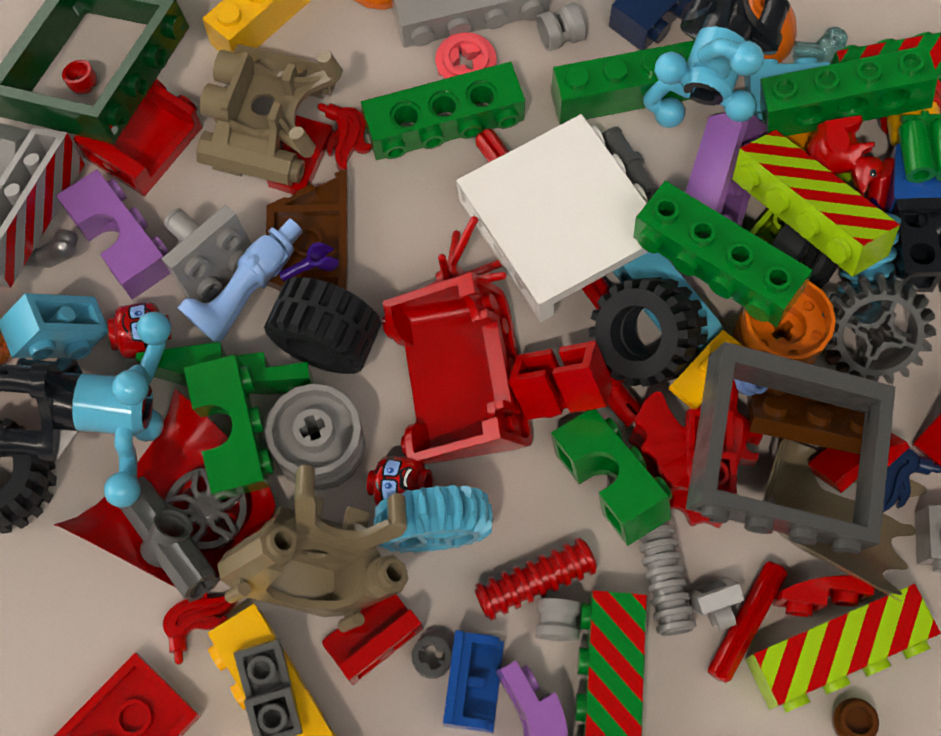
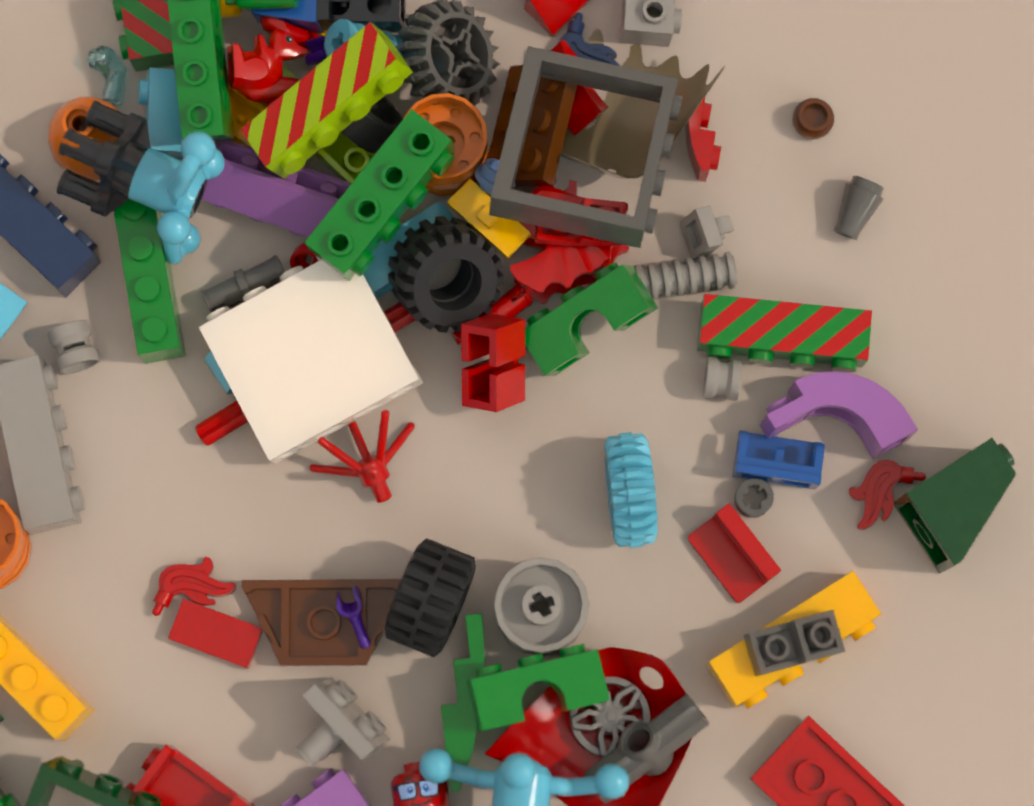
camera: 90 degrees left, 10 degrees up
(193, 615) = (715, 737): red piece -> none
(251, 141) = (213, 678): dark tan piece -> none
(255, 268) = (363, 670): light blue piece -> none
(318, 562) = (677, 605): dark tan piece -> none
(396, 476) = (587, 525): head -> none
(454, 95) = (147, 416): green brick -> none
(459, 369) = (478, 465): red windscreen -> none
(469, 45) = (88, 447): coral gear -> none
(535, 578) = (682, 397): red piece -> none
(747, 622) = (723, 204): red axle -> none
(841, 647) = (750, 123): brick -> none

